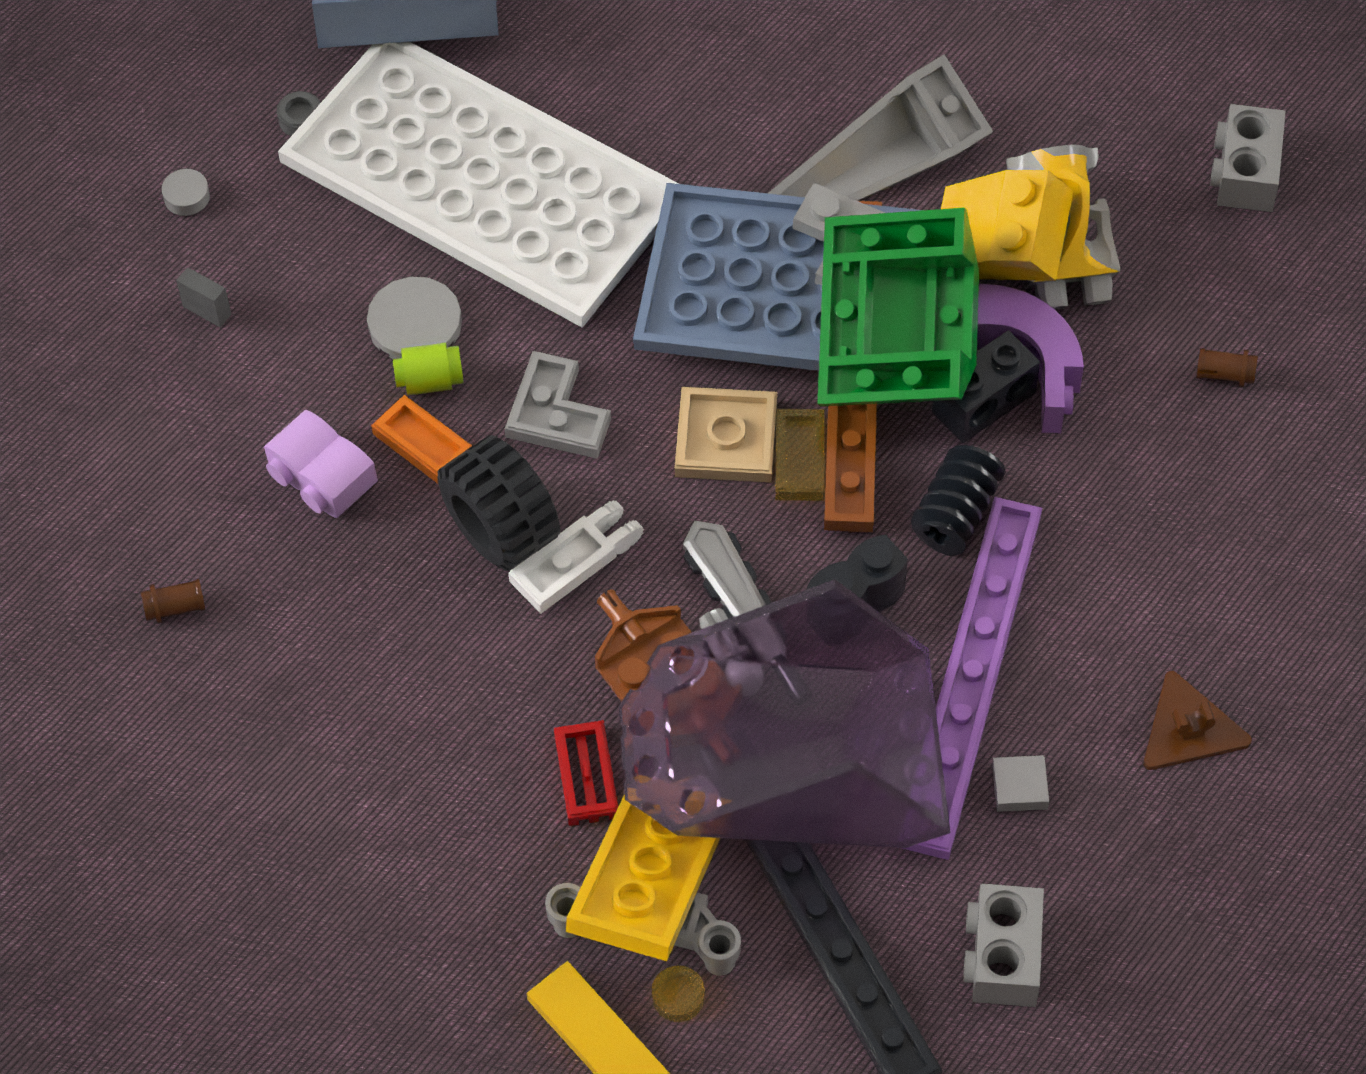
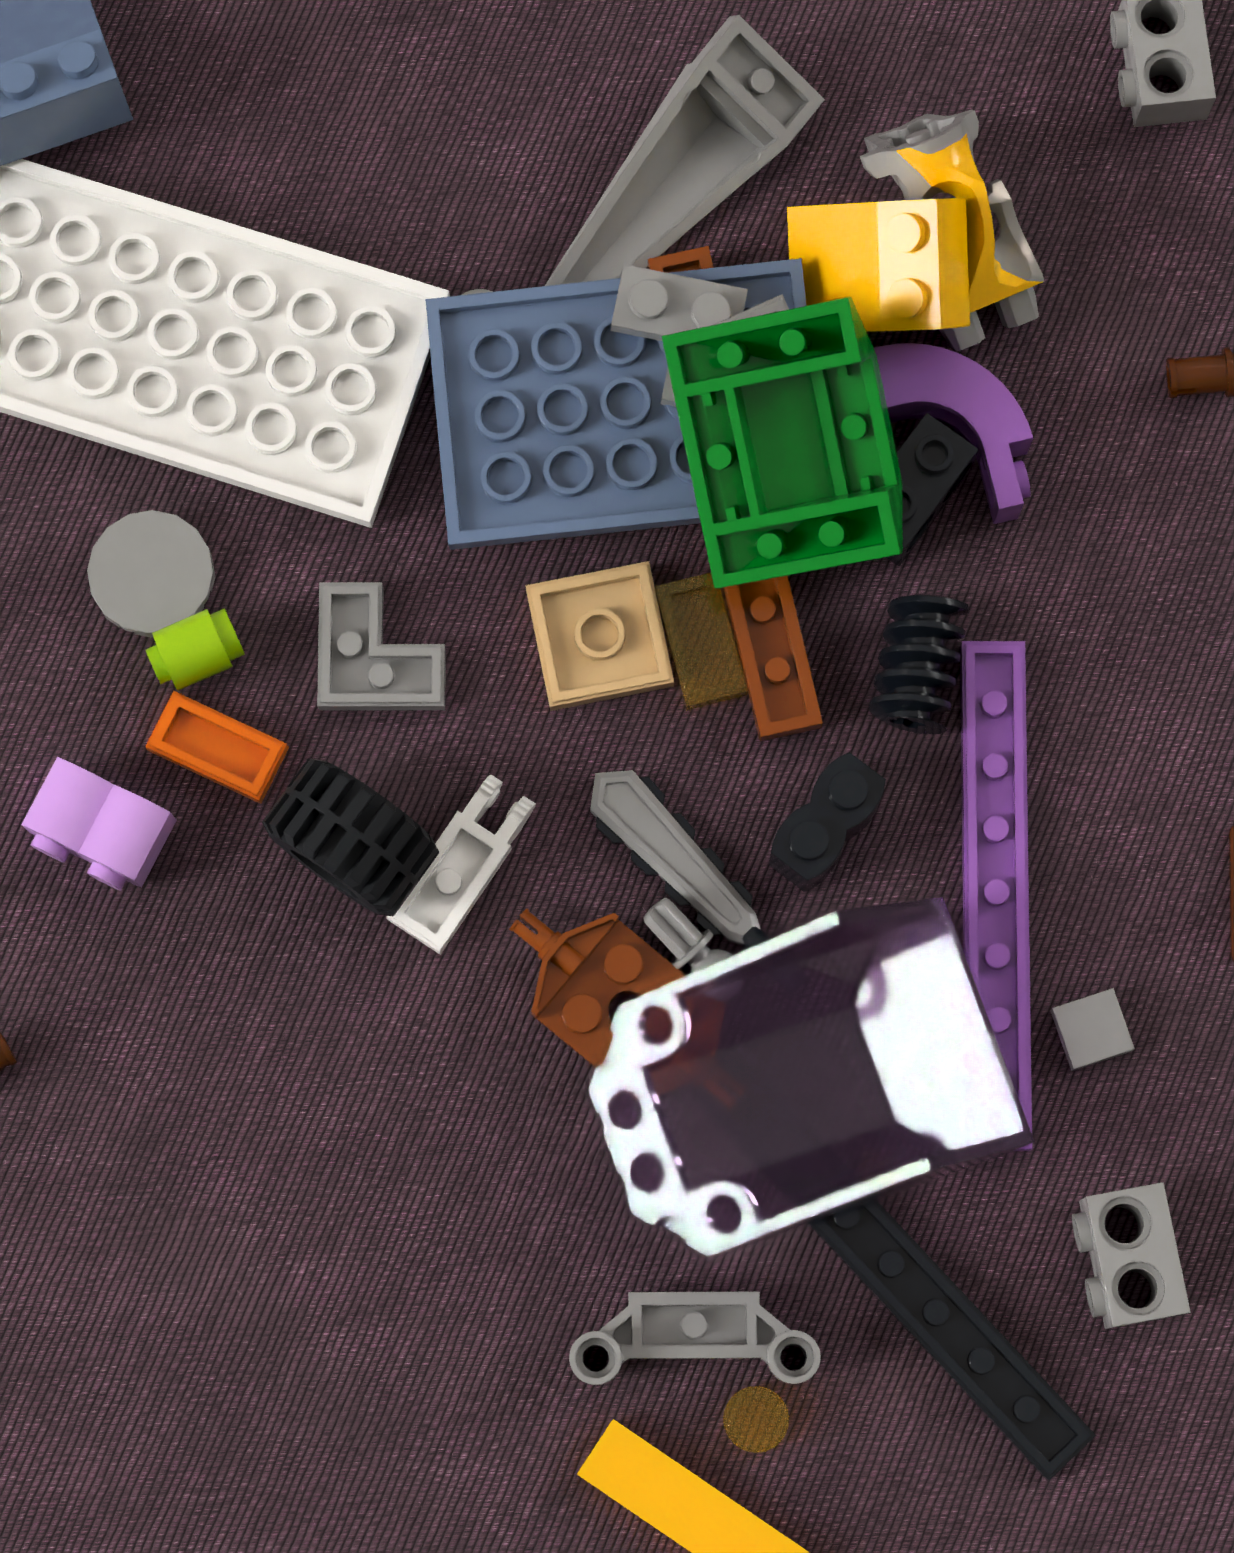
camera: 15 degrees left, 20 degrees up
(592, 809) = (583, 1207): red tile -> none
(640, 885) = (677, 1322): yellow plate -> none

